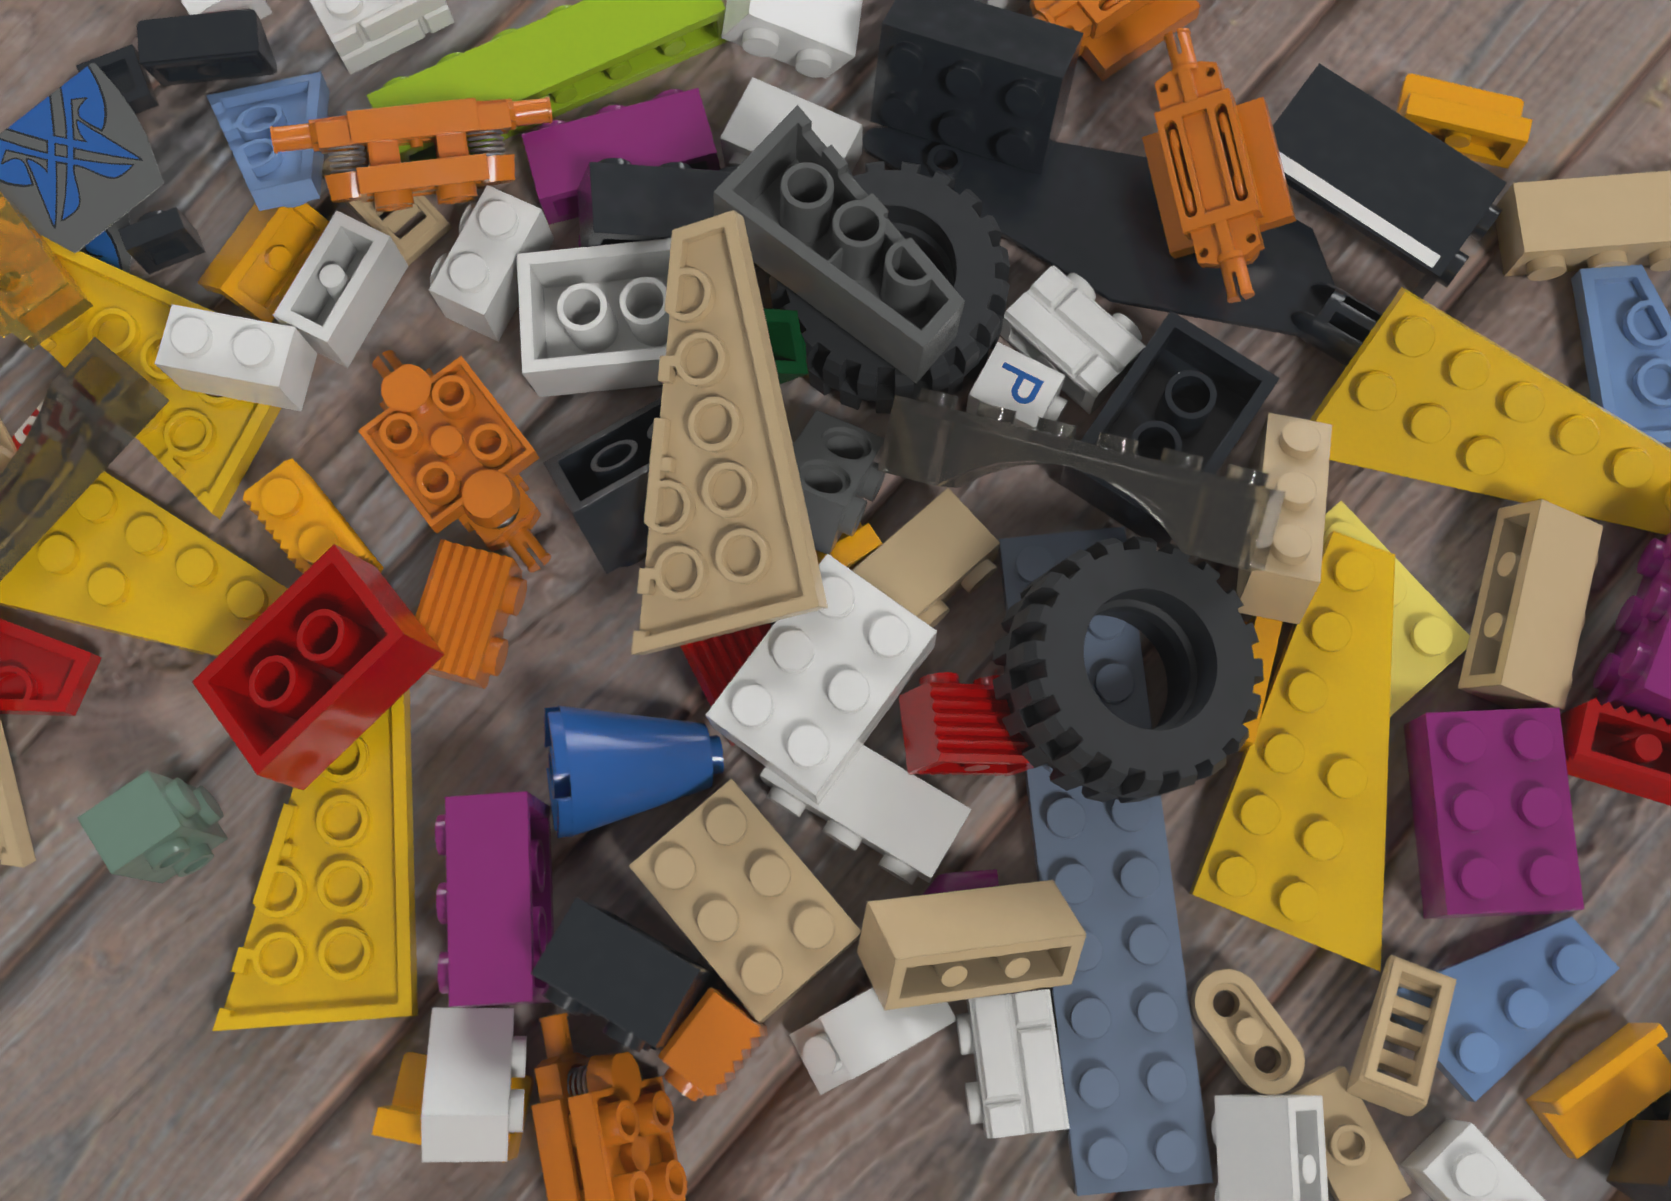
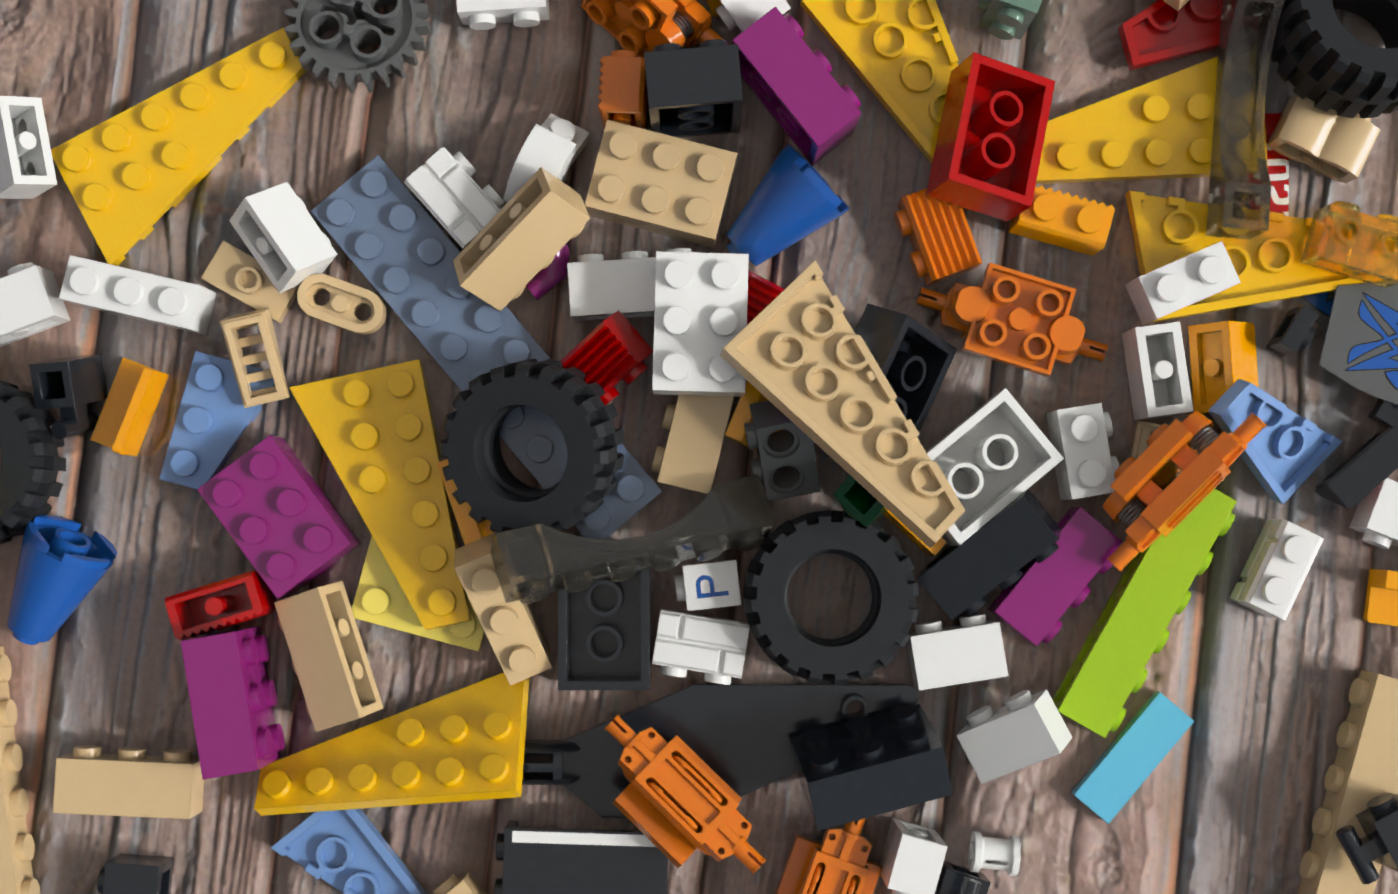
camera: 140 degrees right, 10 degrees up
(839, 249) = (869, 579): dark grey wedge -> none

